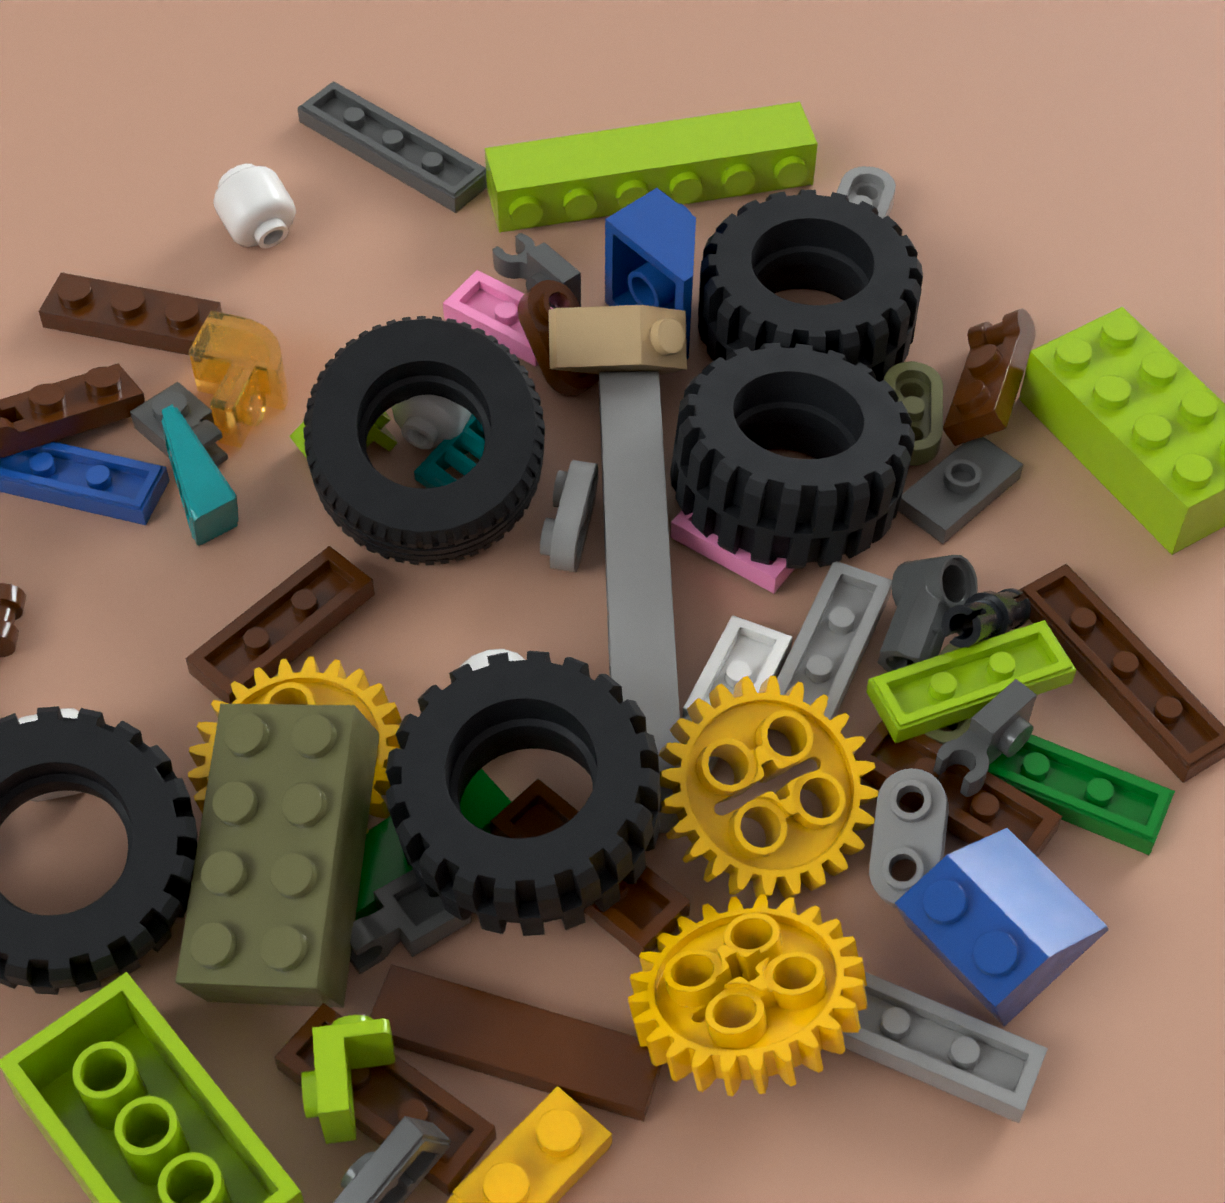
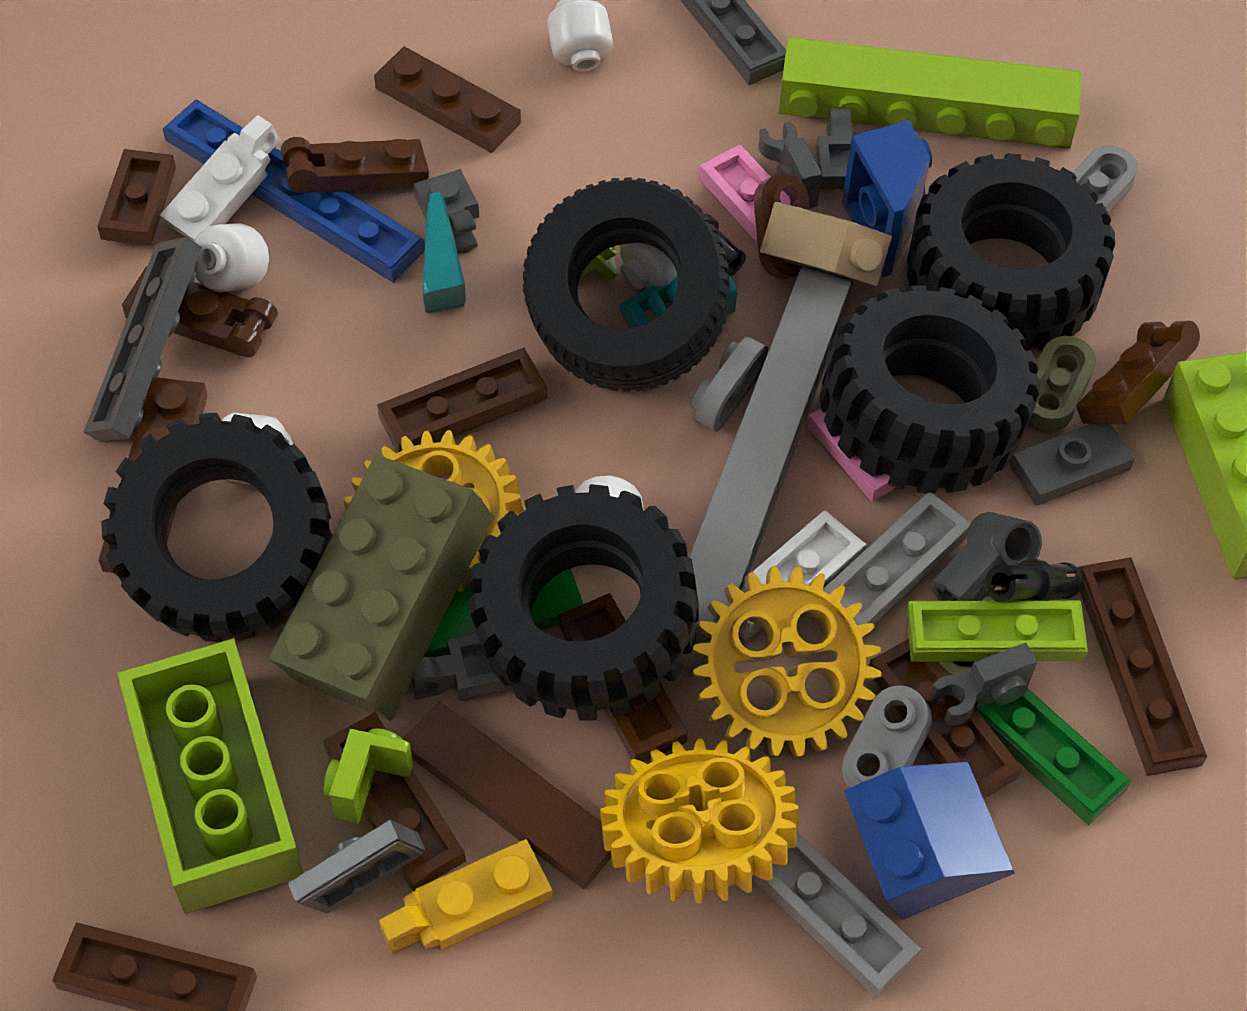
camera: 20 degrees right, 5 degrees up
(242, 369) = (515, 177): clear yellow brick -> none
(582, 245) = (834, 149): none -> dark grey plate

